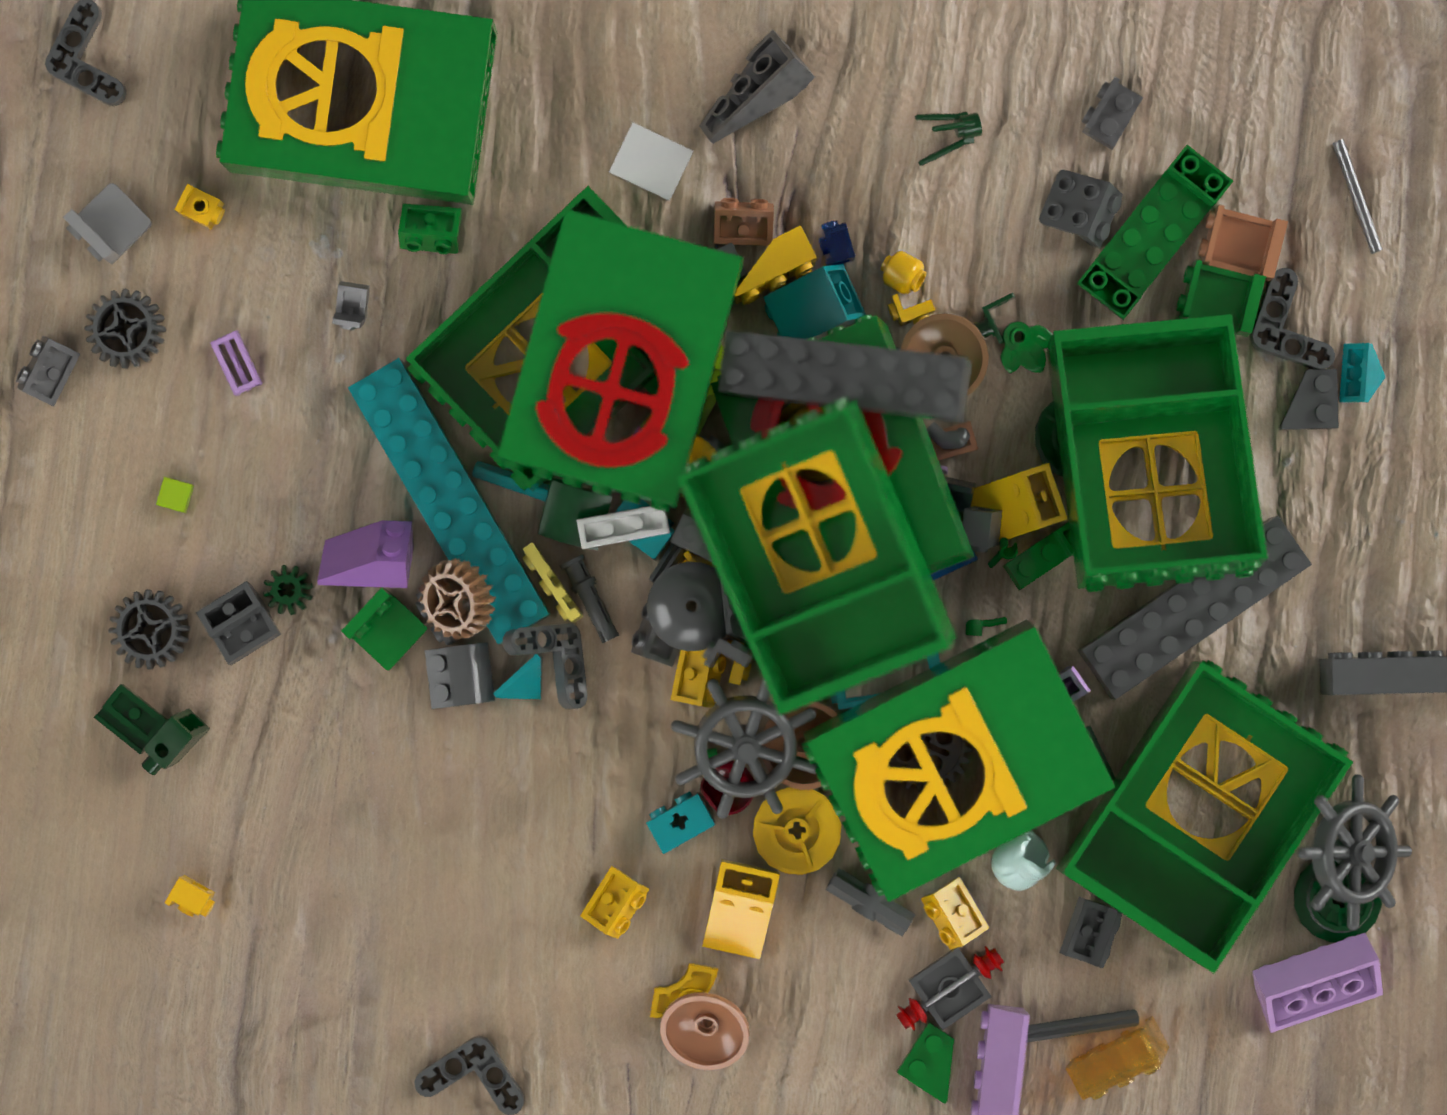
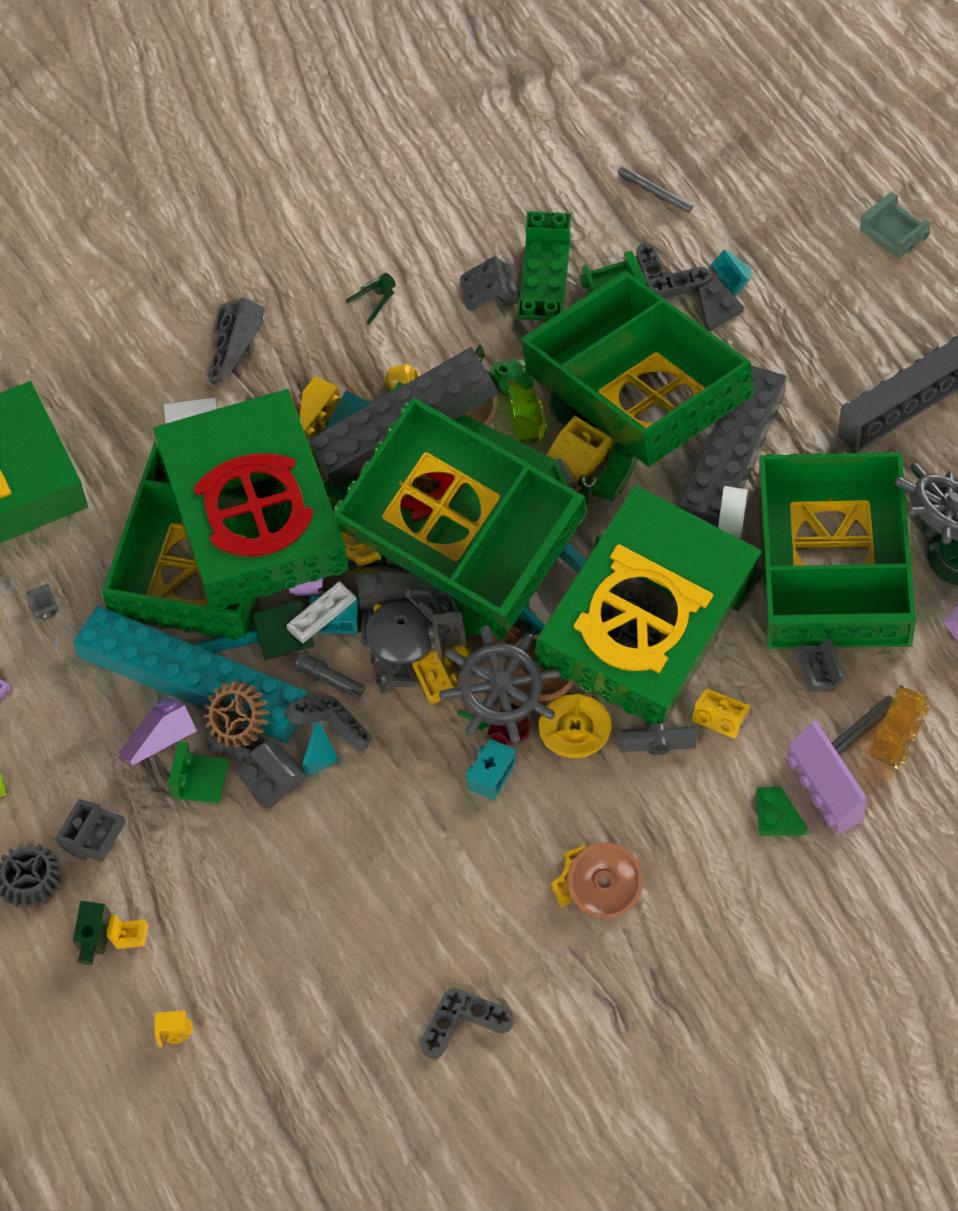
camera: 30 degrees left, 30 degrees down
(130, 718) = (50, 941): dark green plate -> none
(208, 762) = (127, 933): none -> yellow bracket
(286, 600) = (113, 792): dark green gear -> none
(429, 228) = (68, 532): green bracket -> none
(551, 583) = (313, 682): light yellow wing -> none
(615, 903) = (482, 846): yellow bracket -> none
(741, 909) = (572, 793): yellow slope -> none
(836, 243) = (348, 382): clear blue brick -> none
(949, 988) = (753, 757): dark grey plate -> none
(1004, 413) = (526, 413): none -> clear neon green slope
(1021, 862) = (738, 652): light aqua hair -> none
(1112, 113) = (469, 231): flat silver bracket -> none
(1119, 710) = (733, 511): none -> white tile
(1242, 242) = (603, 247): nougat panel -> none

